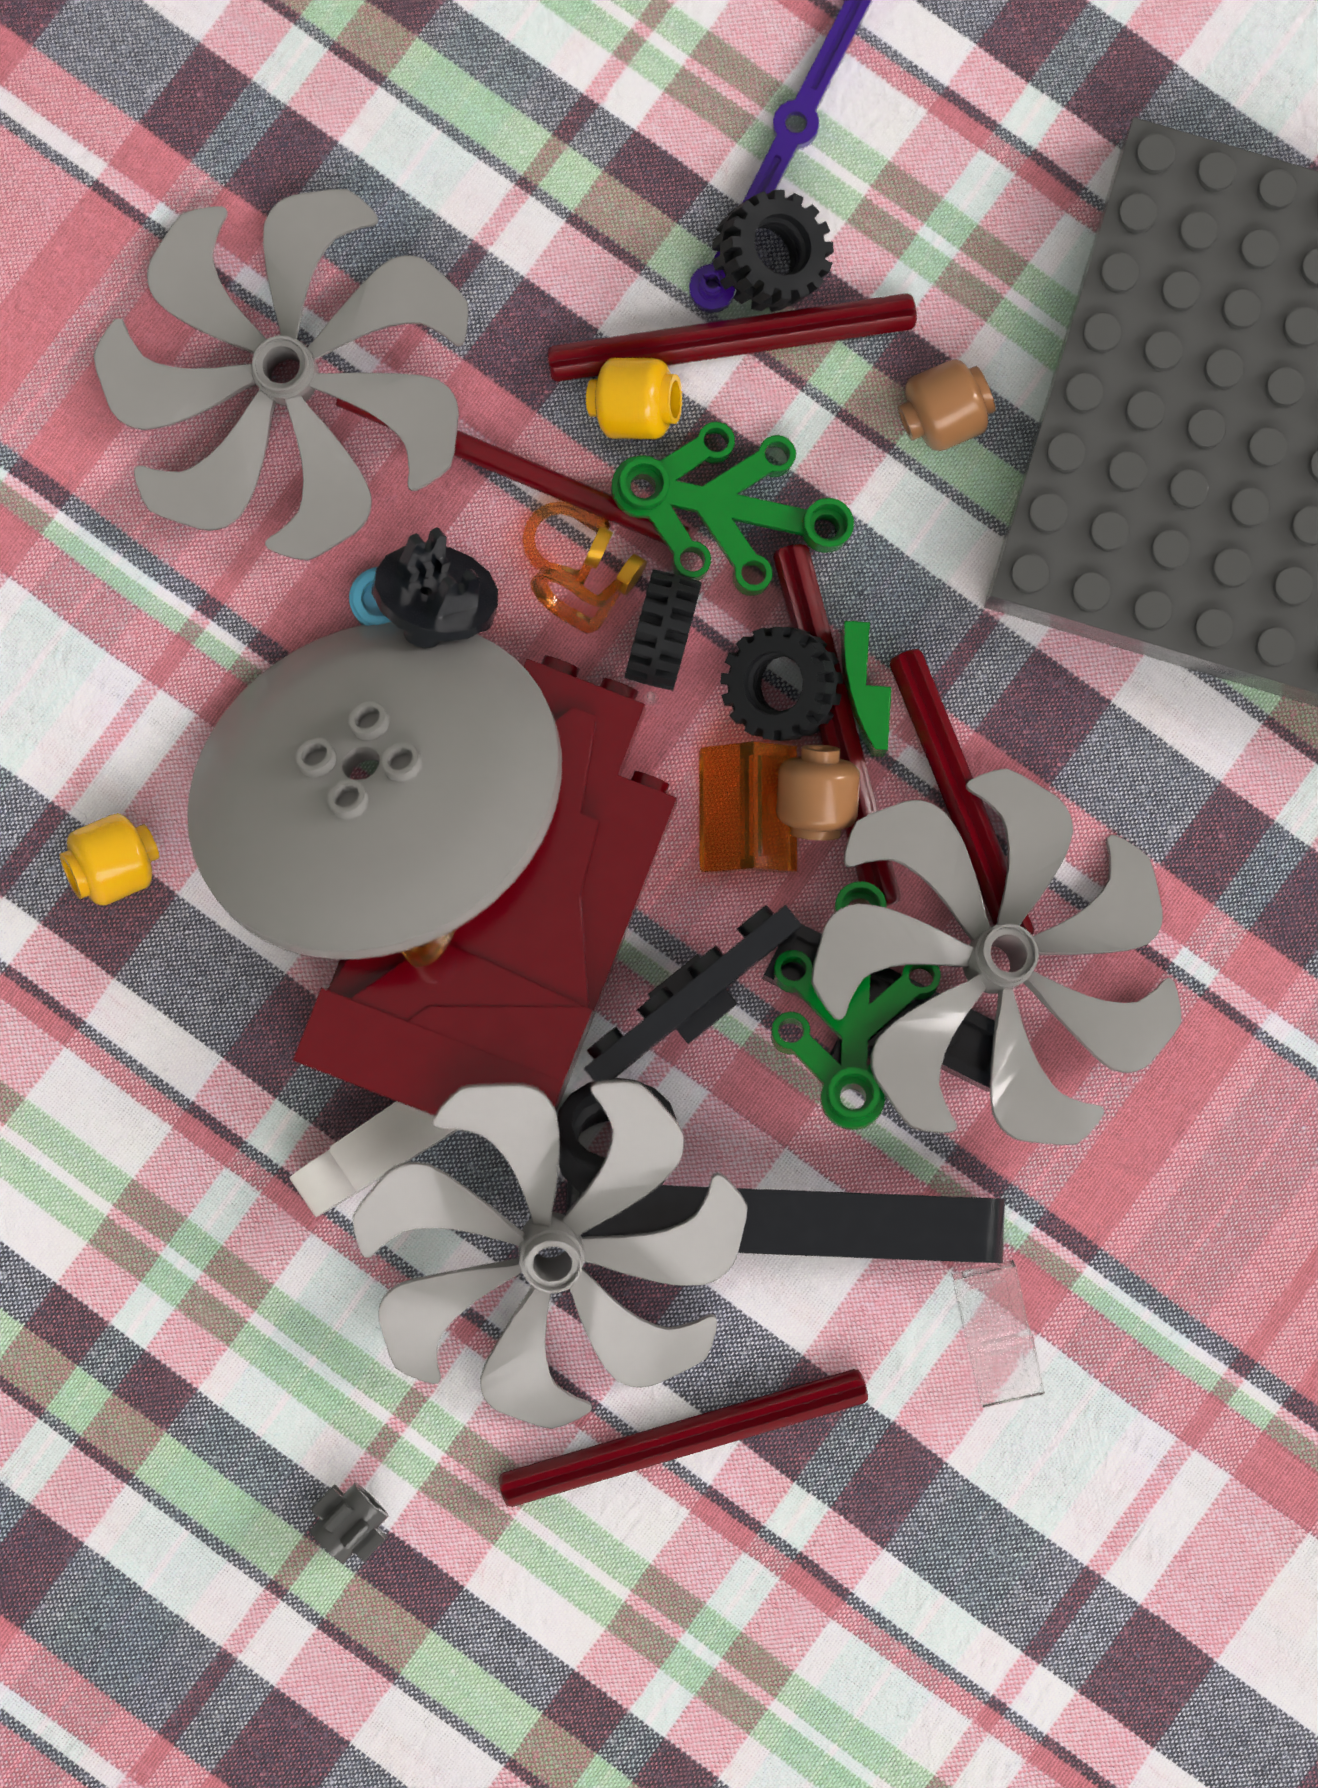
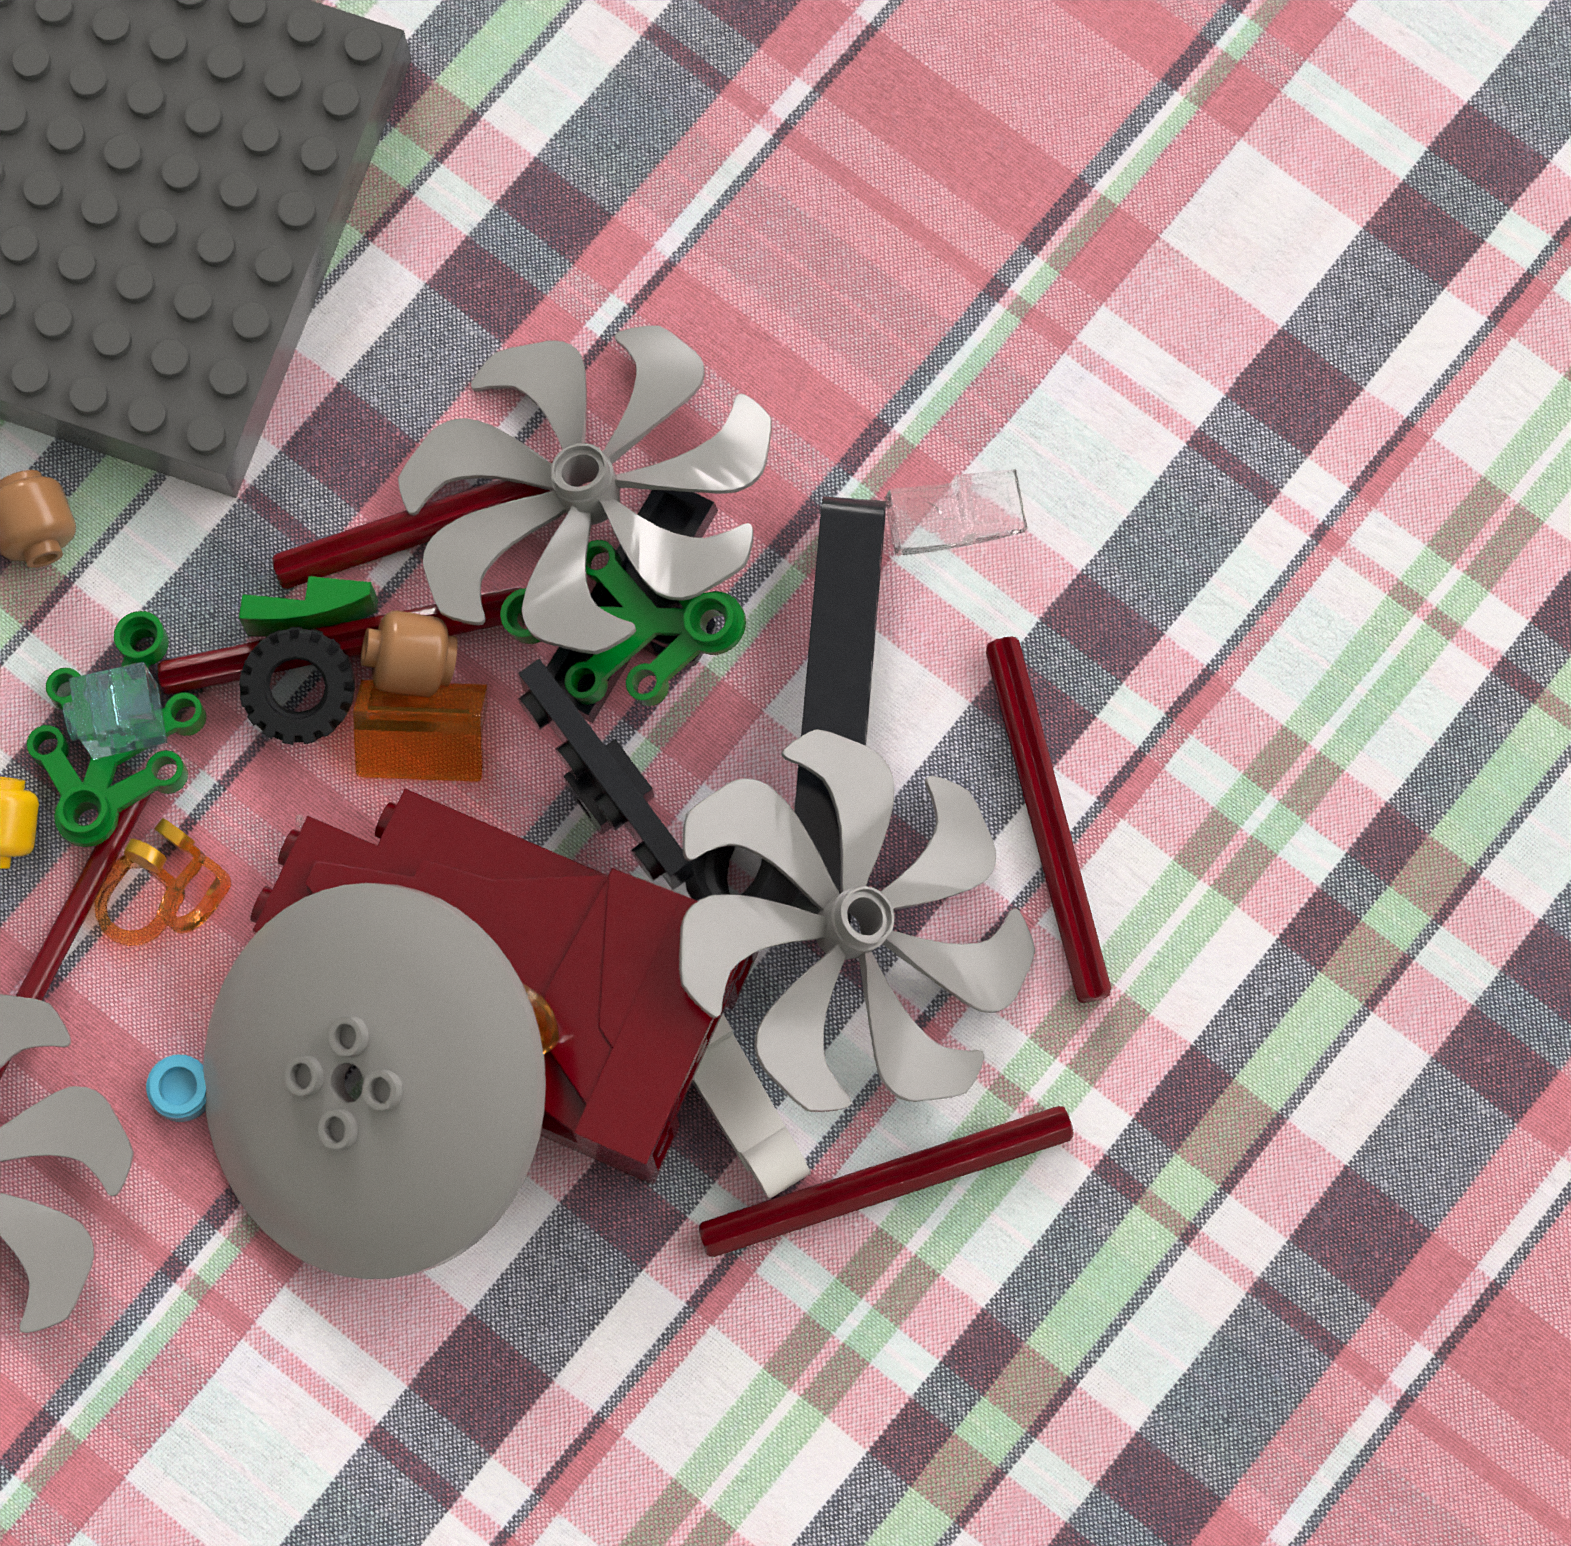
camera: 85 degrees left, 10 degrees down
(109, 859) = (429, 1372): yellow head -> none
(313, 1292) = (886, 1181): none -> dark red axle
(349, 1523) = (1121, 1147): dark grey gear -> none
(434, 591) = (176, 1022): black plate -> none
(663, 629) = (234, 796): black tyre -> none
(743, 506) = (115, 711): none -> clear light blue brick

